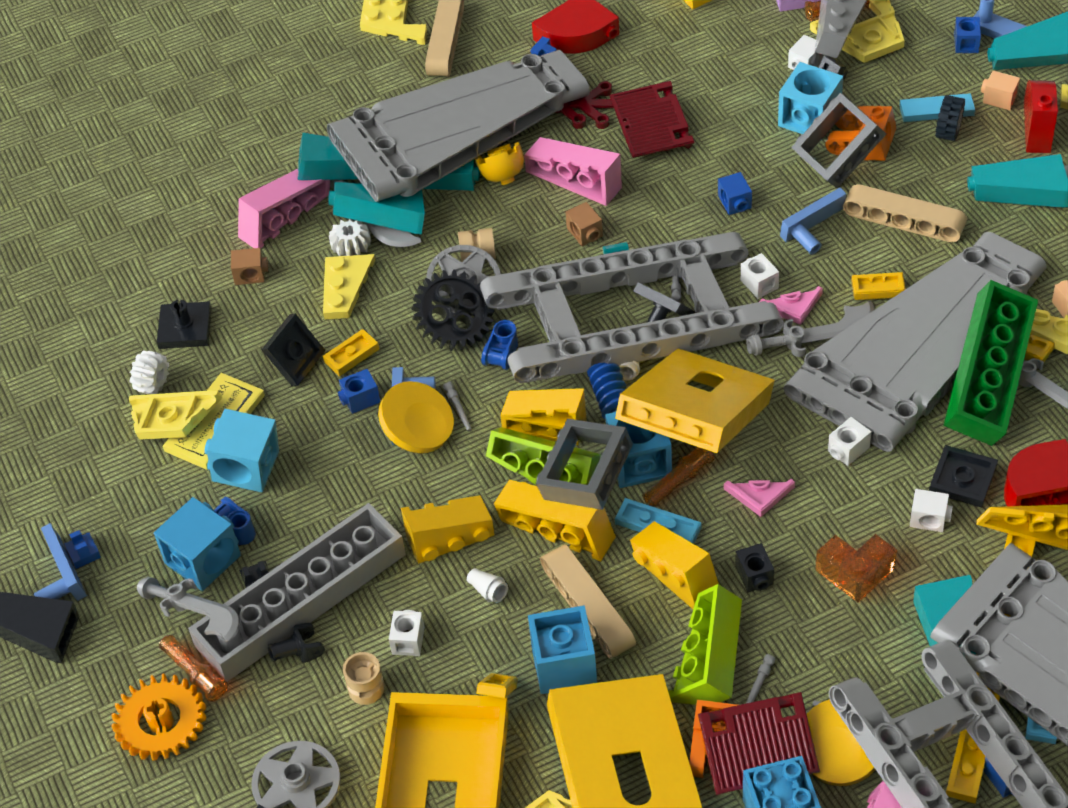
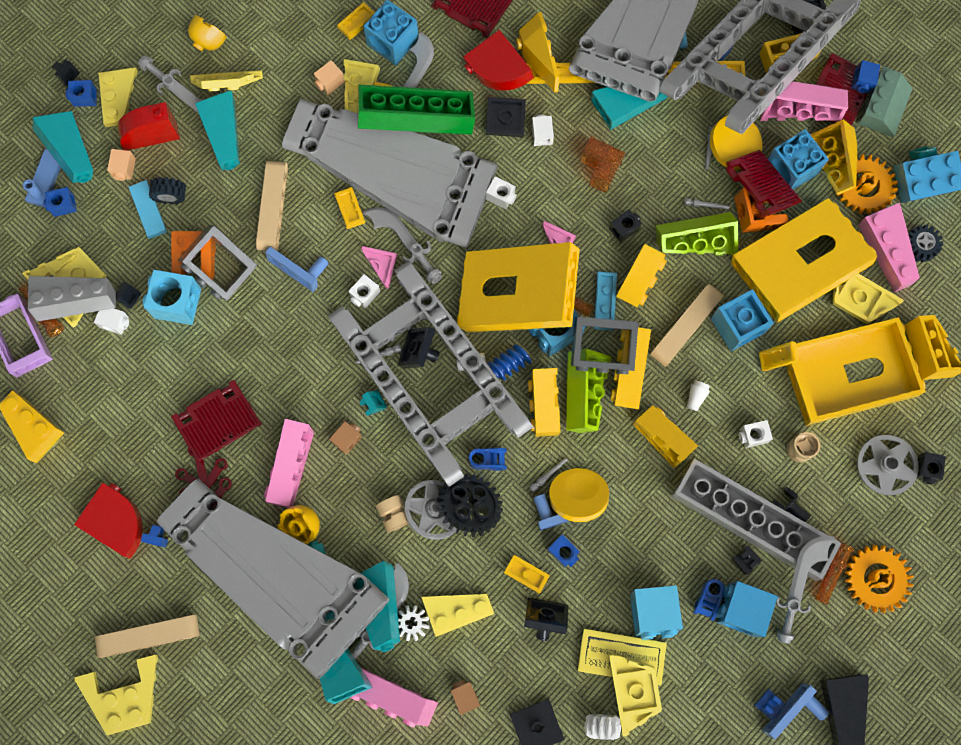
camera: 115 degrees left, 25 degrees up
(734, 193) = (284, 332): blue brick -> none

